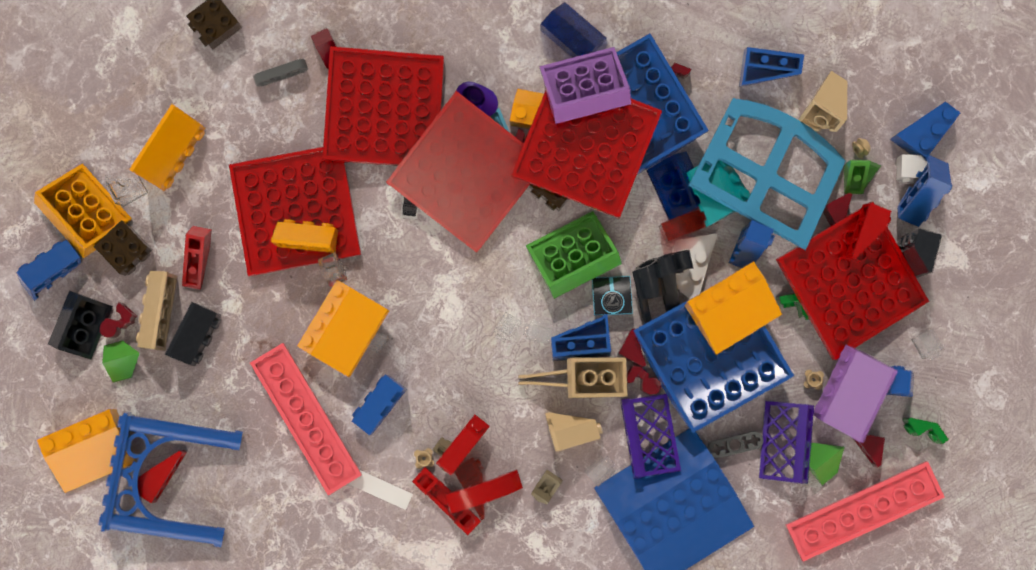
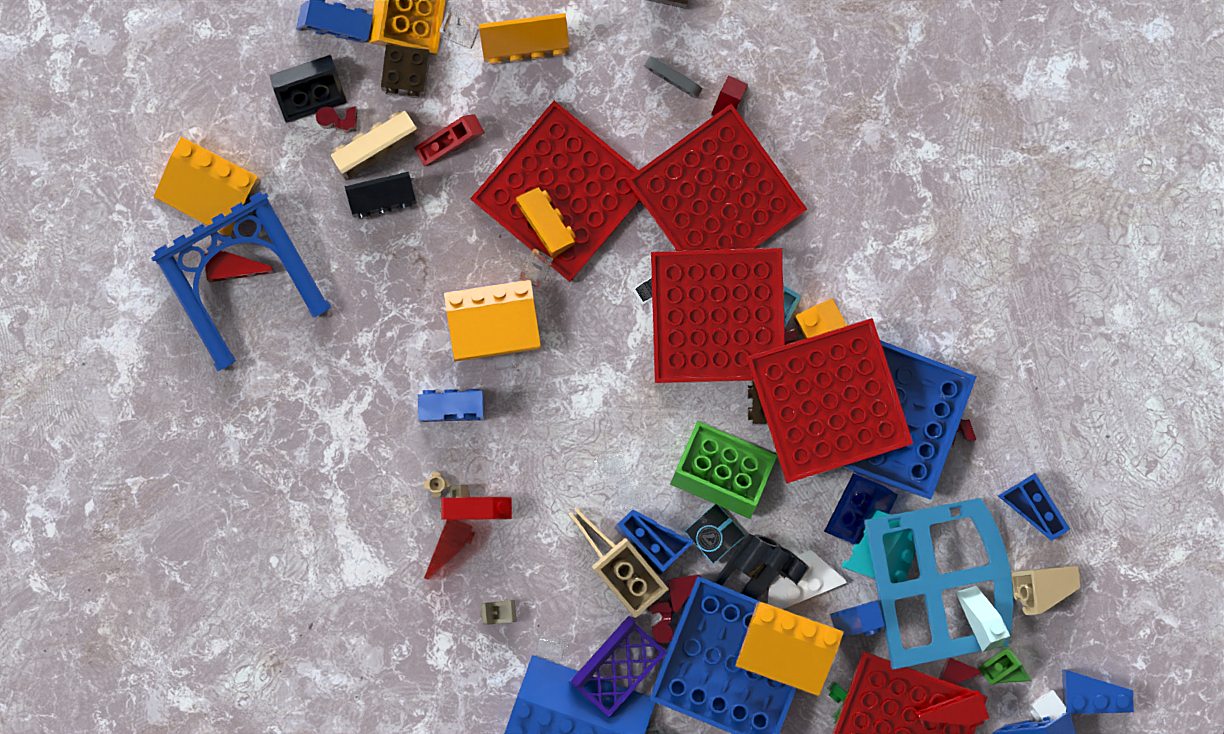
camera: 45 degrees right, 0 degrees up
(119, 360) = (306, 149): bright green slope -> none
(306, 419) = (387, 353): coral plate -> none
(382, 490) = (378, 465): white sticker -> none
(436, 491) = (416, 534): red slope -> none
(480, 96) = (794, 271): dark purple piece -> none
(483, 492) = (450, 560): red slope -> none
(571, 31) = (923, 306): clear blue slope -> none
(571, 430) = (566, 594): tan slope -> none
(585, 85) = (879, 357): medium lavender slope -> none
(683, 226) = (827, 546): clear red slope -> none
(816, 161) = (983, 618): none -> light aqua slope
(861, 147) = (1031, 649): tan plate -> none

